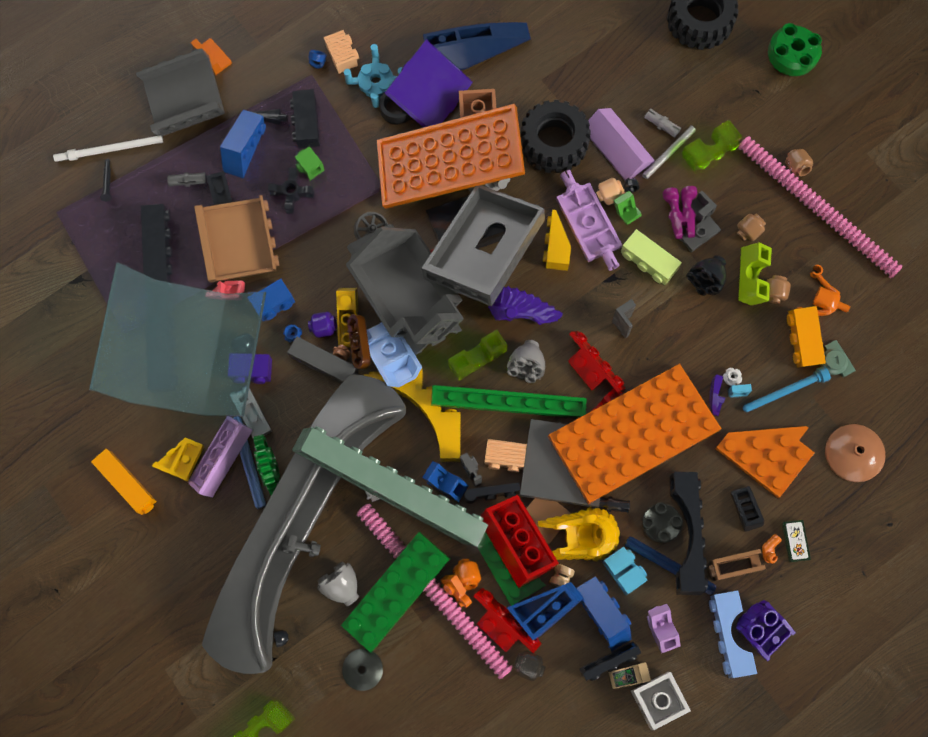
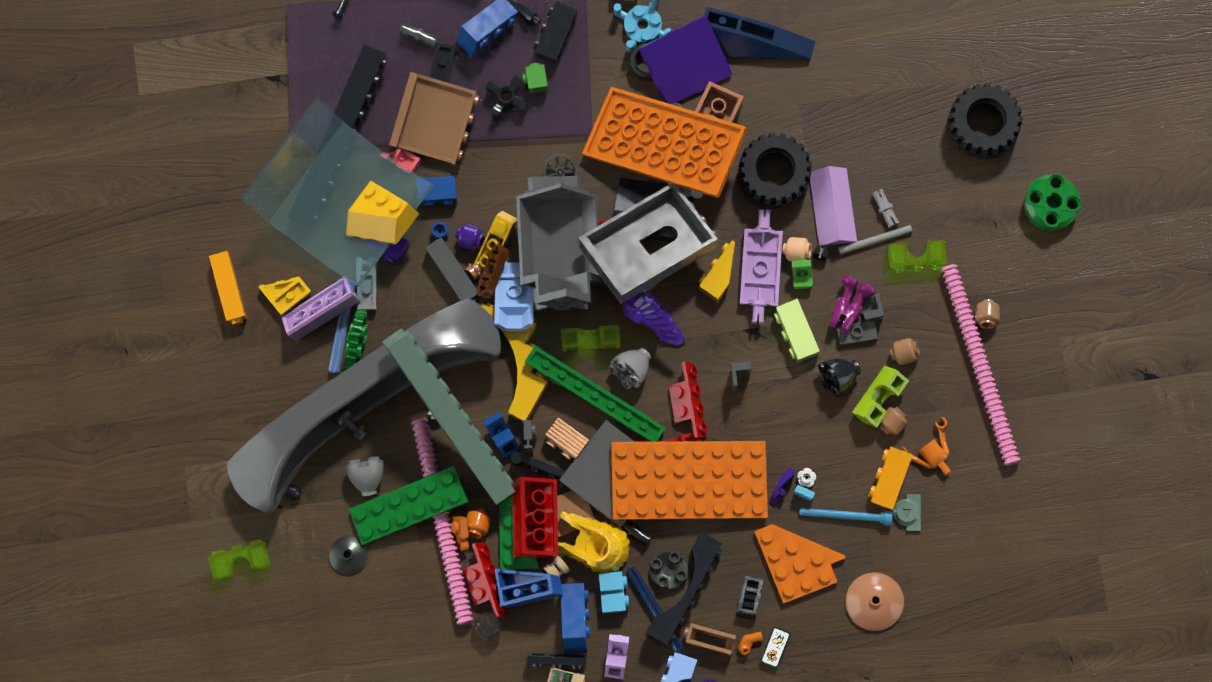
camera: 30 degrees right, 5 degrees up
(231, 343) = (379, 215): none -> yellow wedge

